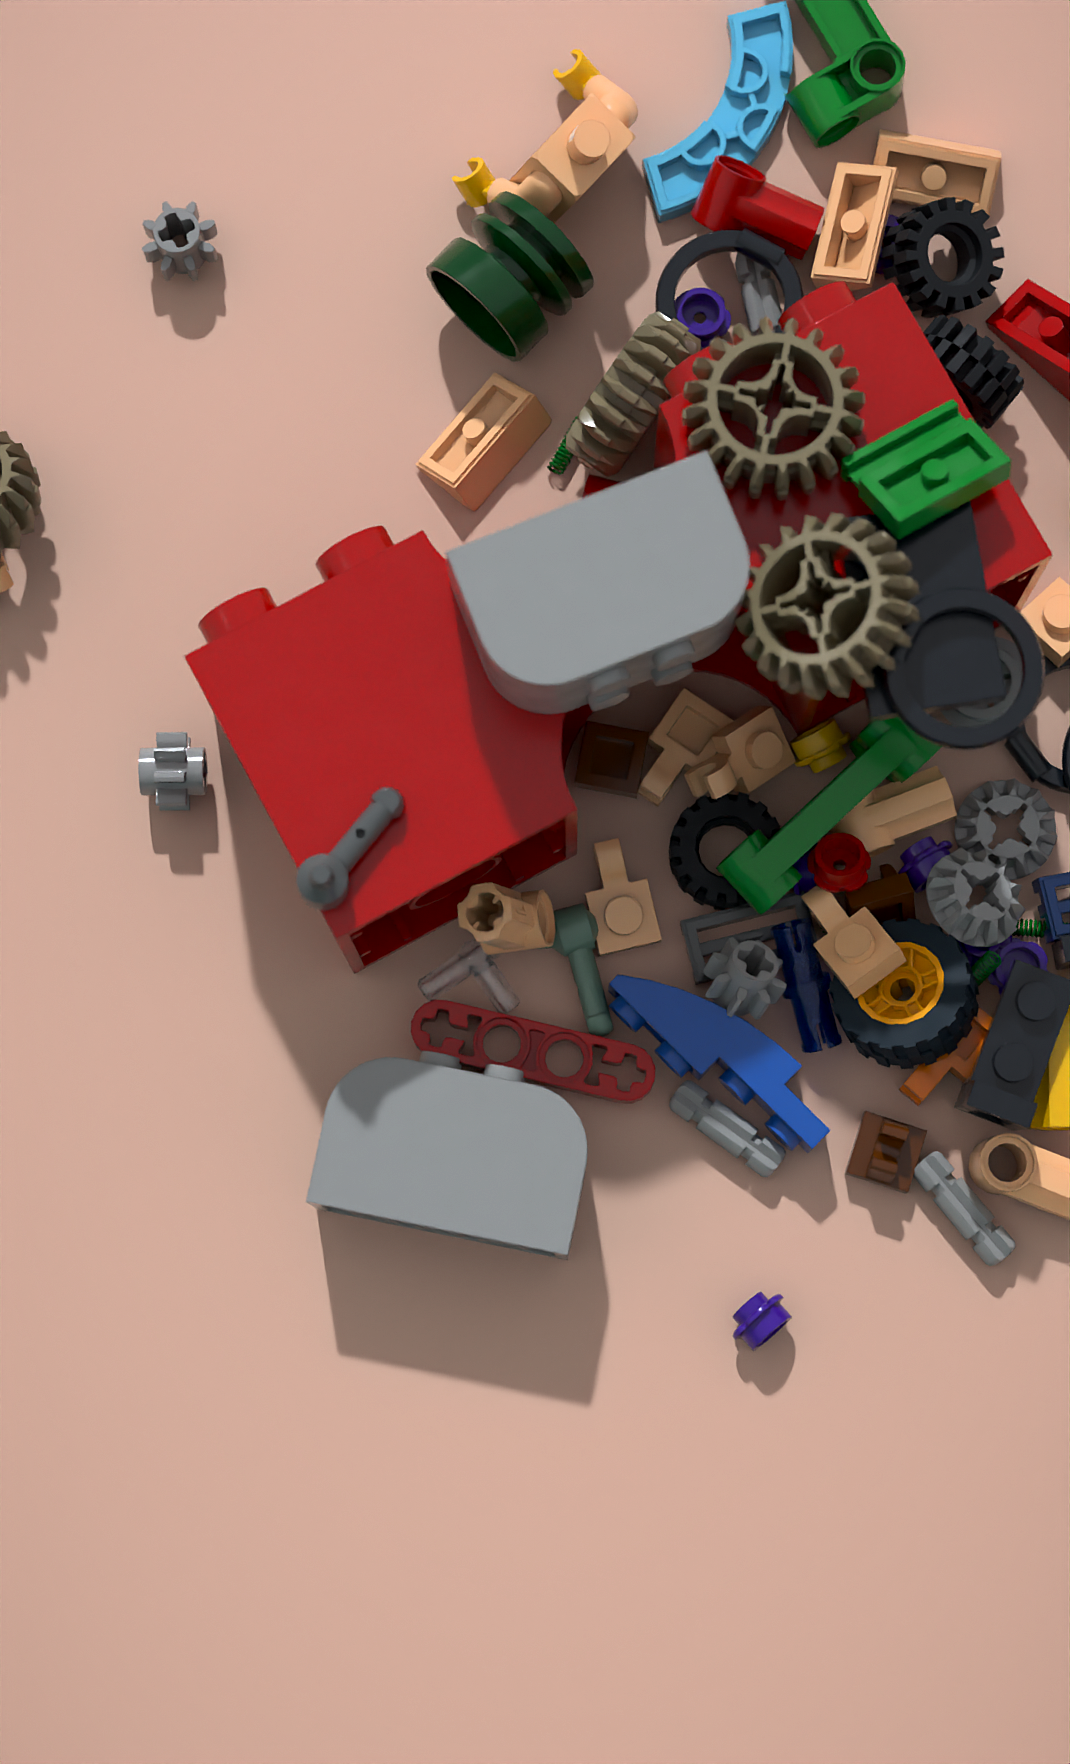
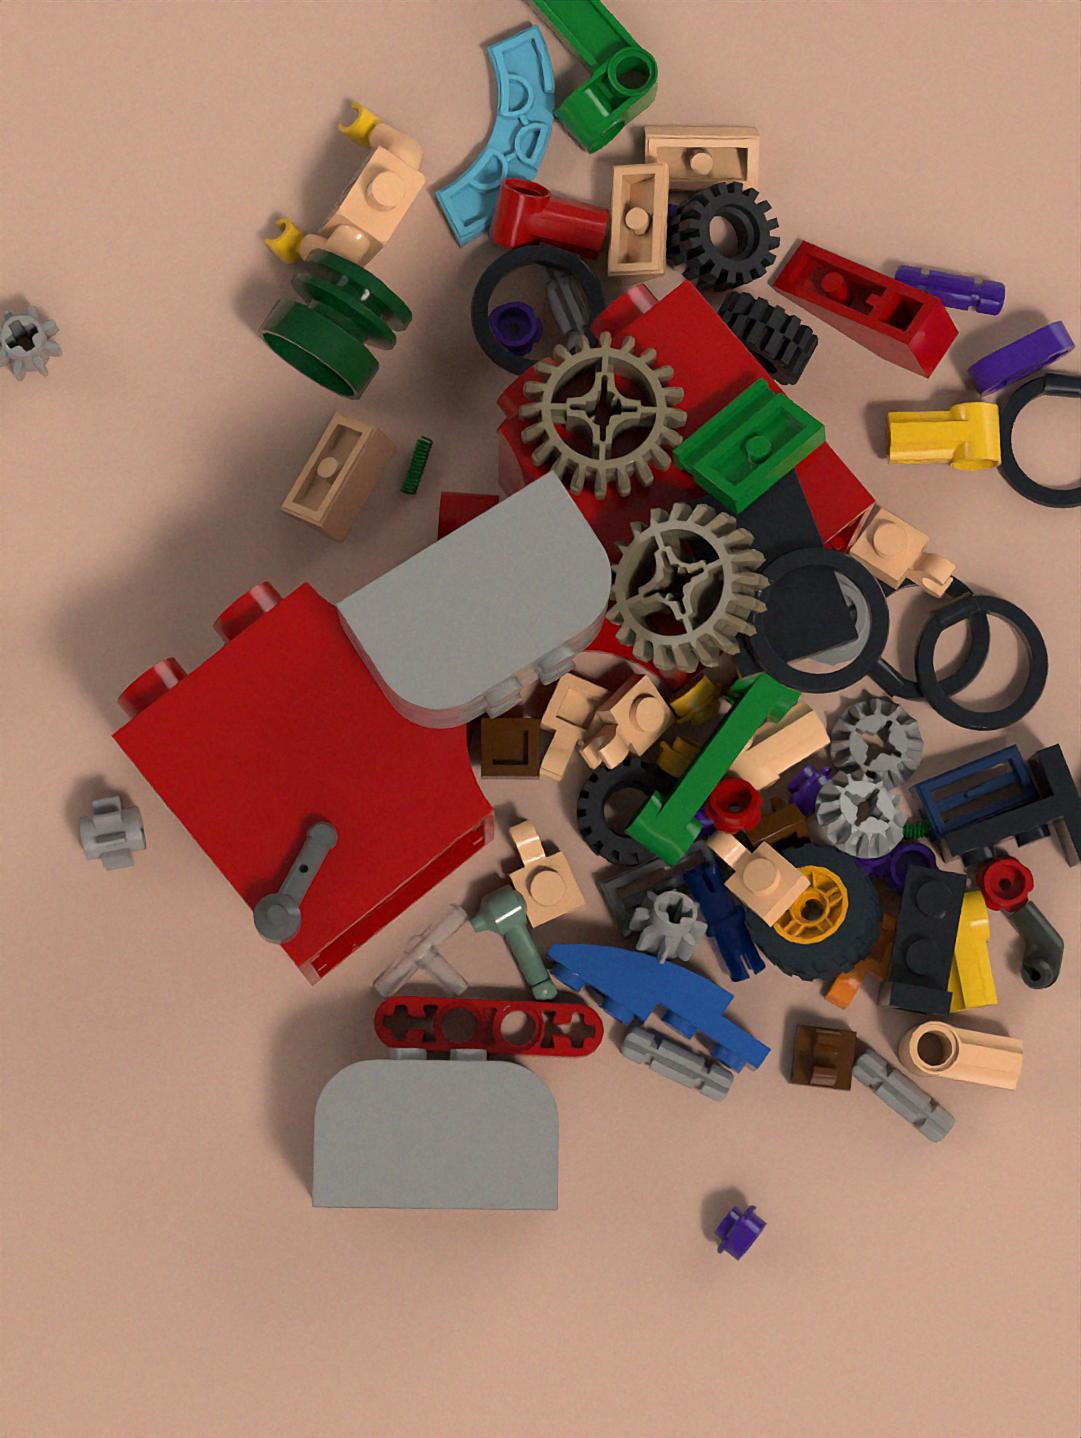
camera: 20 degrees left, 0 degrees up
(507, 919) = (445, 913): light nougat piece -> none
(630, 395) = (467, 413): dark tan gear -> none
(788, 800) = (677, 755): none -> yellow plate
(982, 960) = (881, 874): green leg -> none

